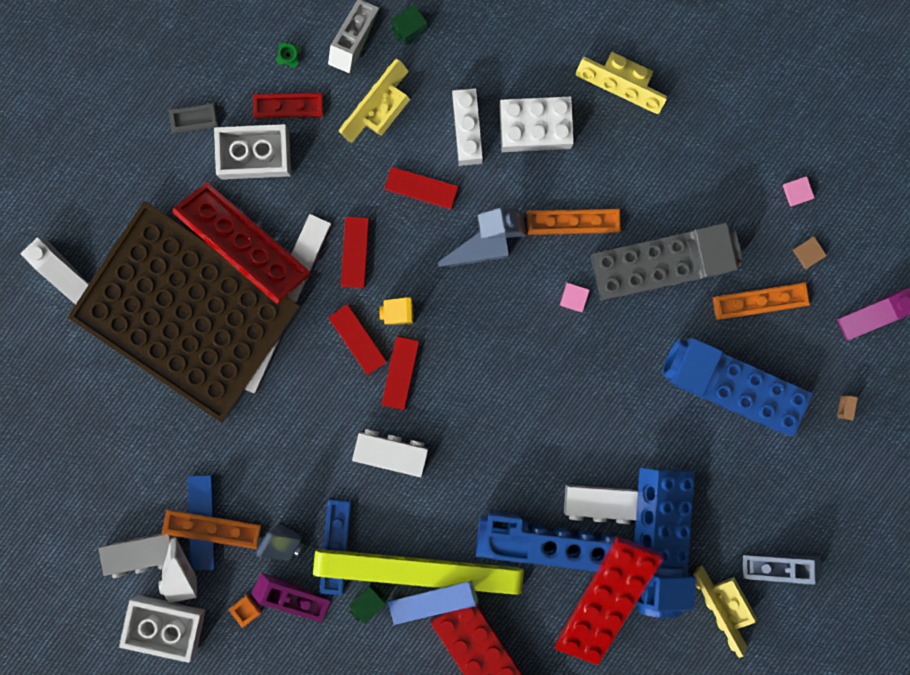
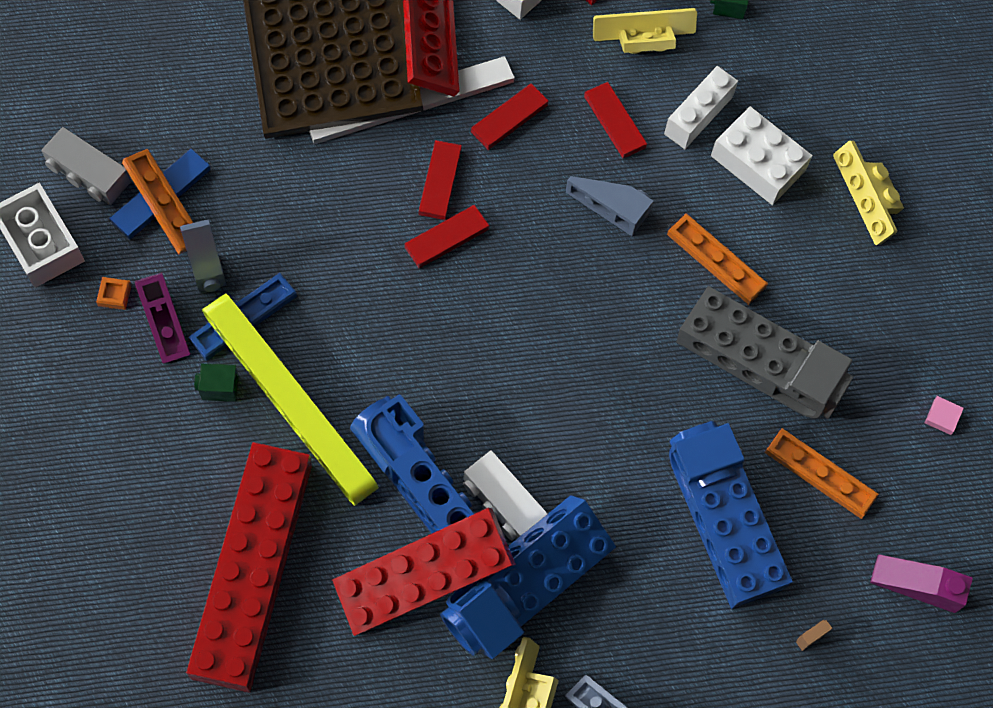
camera: 40 degrees right, 20 degrees down
(178, 577) = (94, 206): white slope -> none
(390, 453) = (370, 285): white brick -> none
(397, 311) = (498, 185): yellow slope -> none
(433, 602) = (273, 429): tile -> none
(502, 223) = (657, 190): sand blue slope -> none
(574, 297) = (656, 316): bright pink tile -> none
(809, 252) = (905, 474): medium nougat tile -> none

